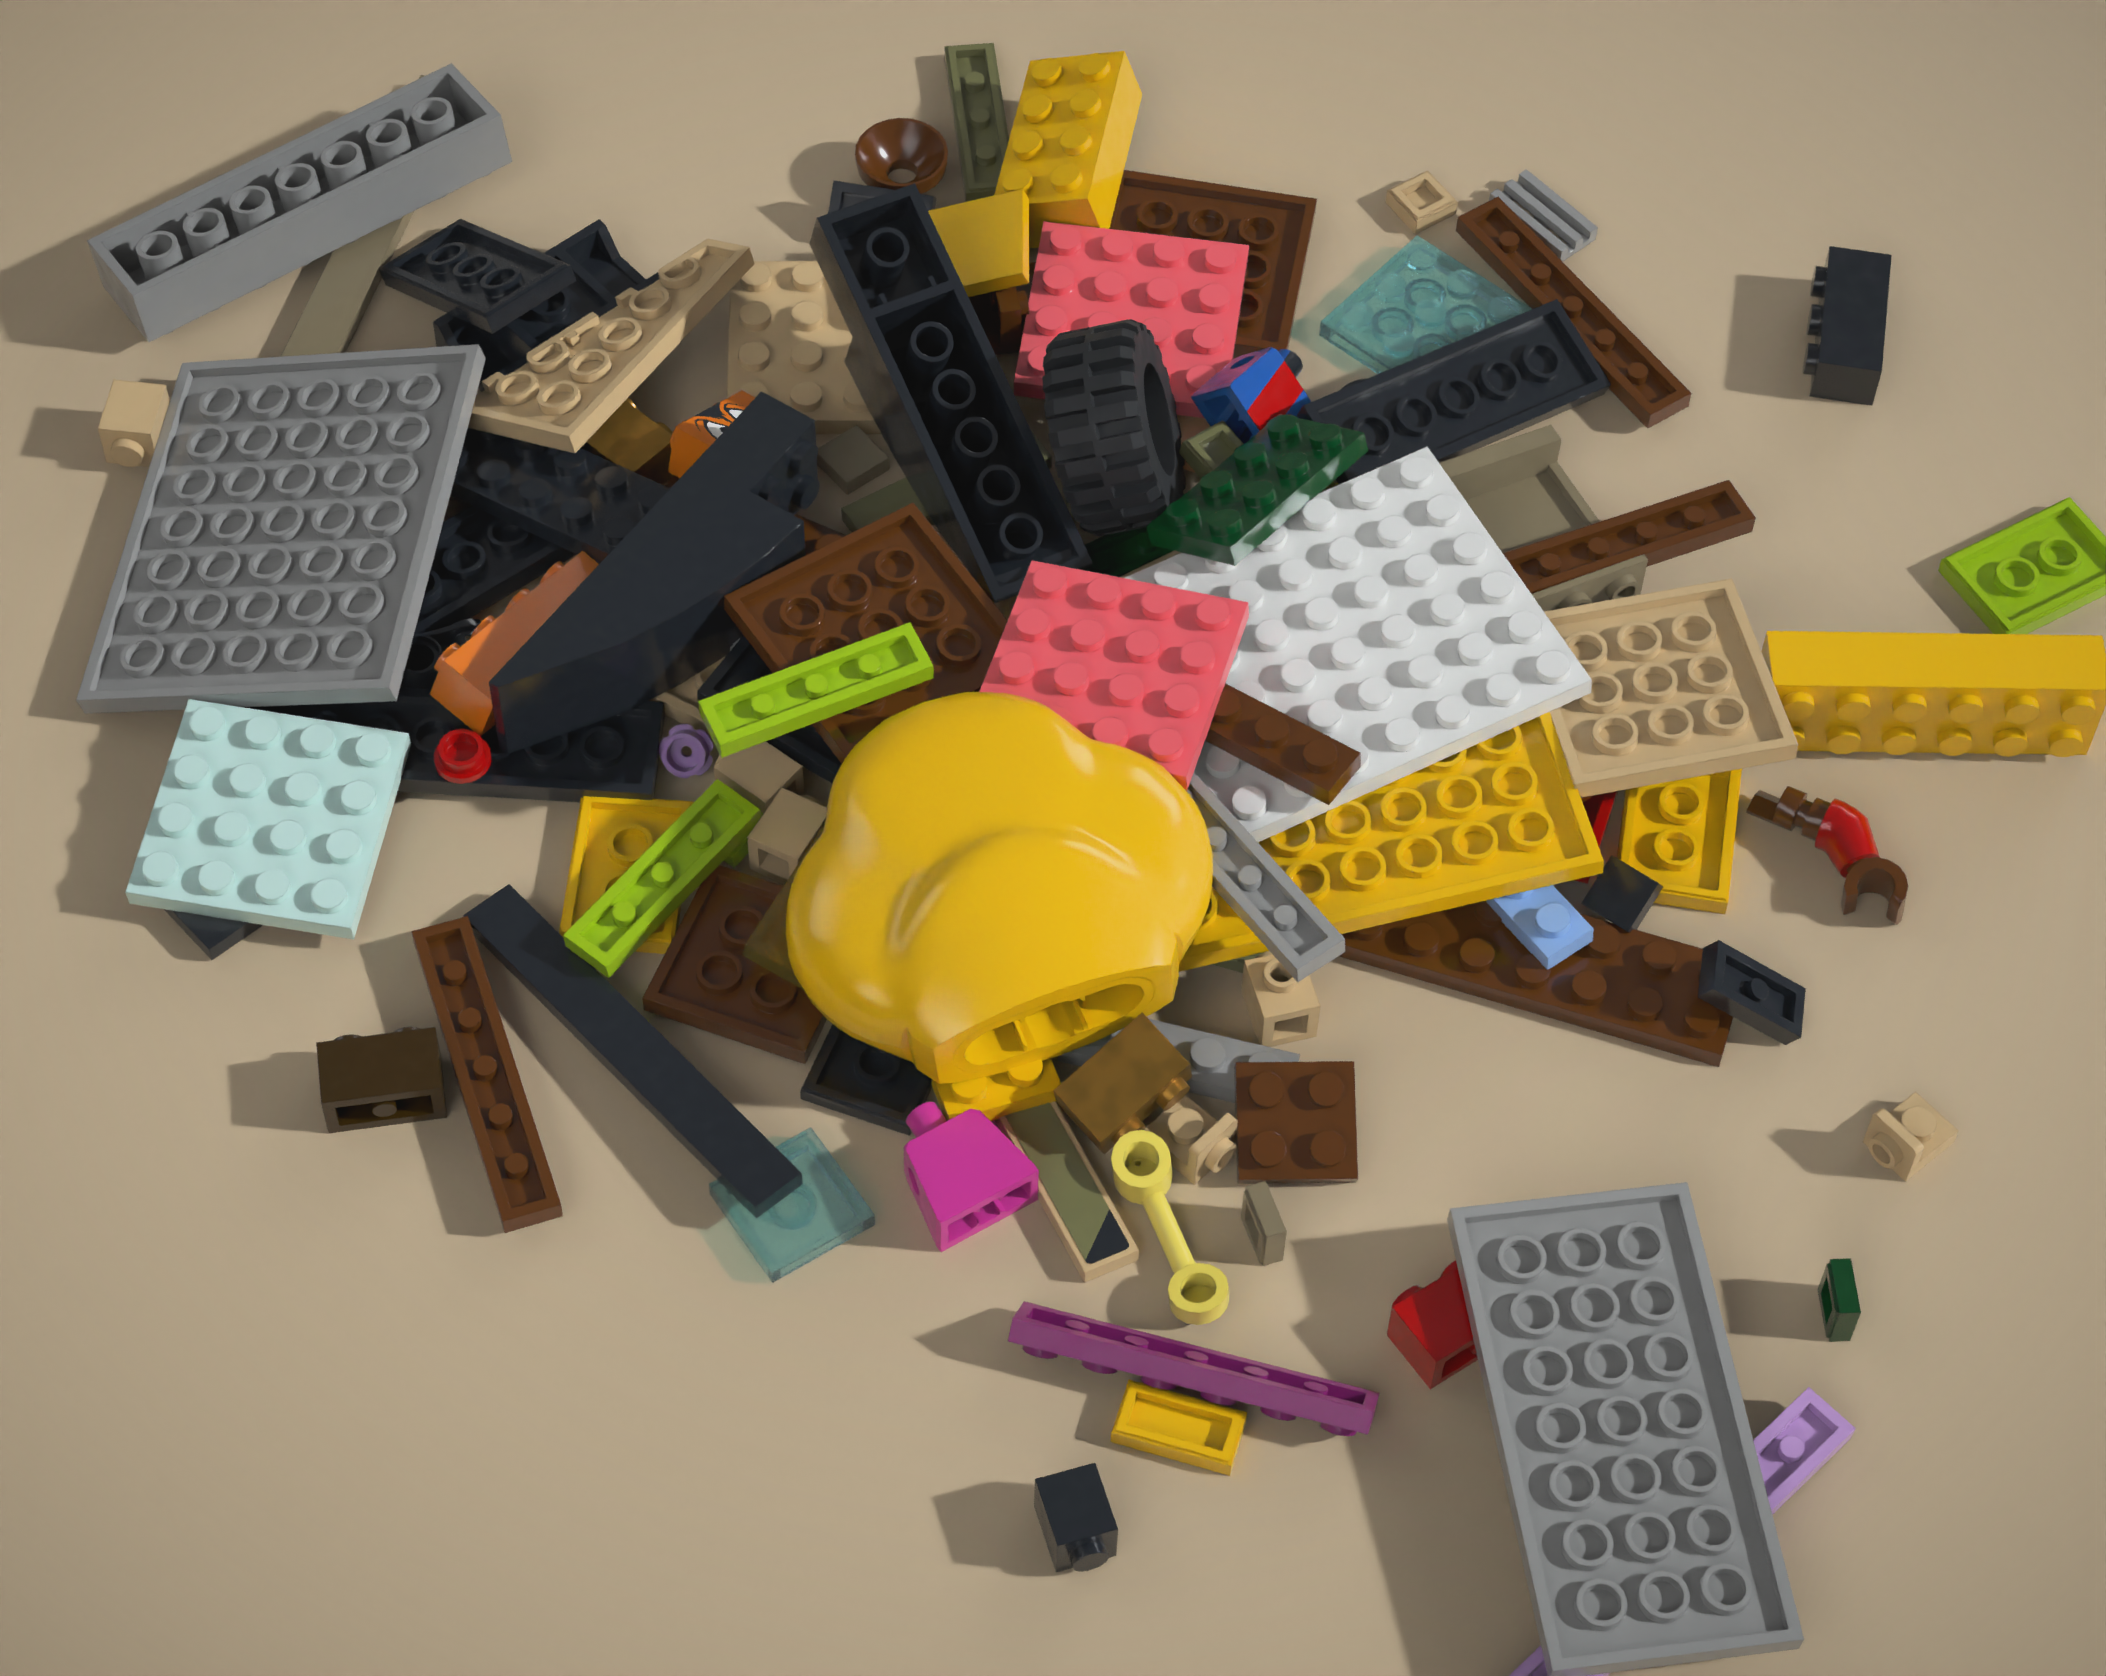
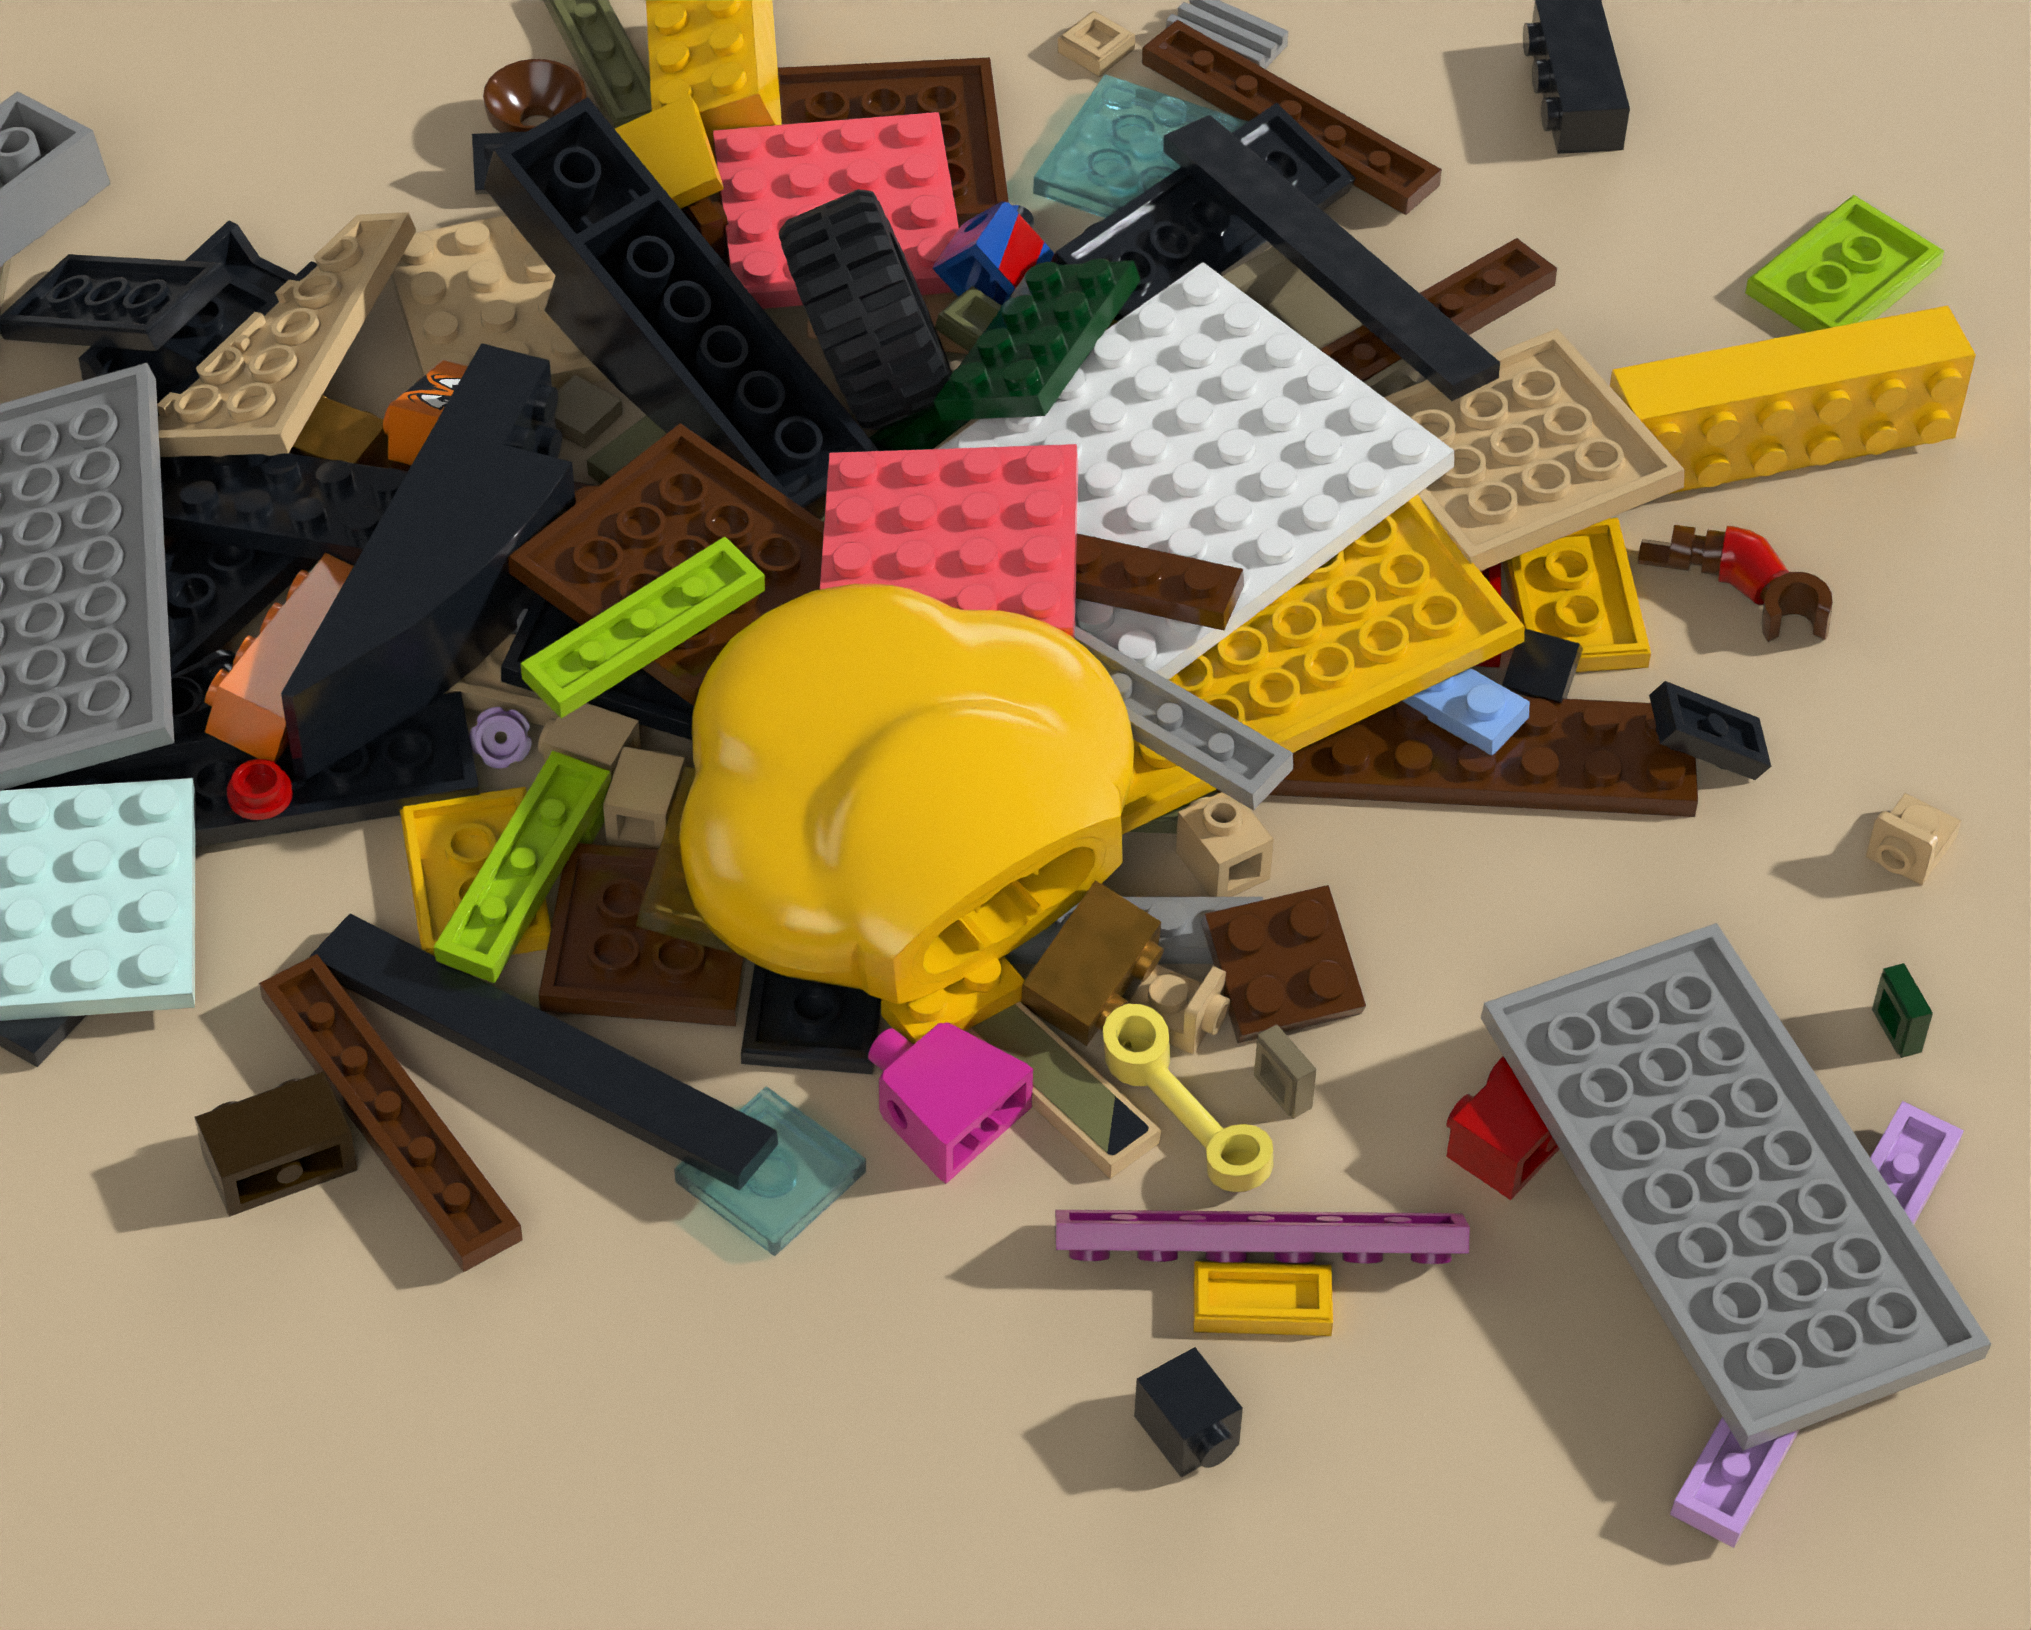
camera: 15 degrees left, 5 degrees down
(1549, 466) = (1332, 258): none -> black tile

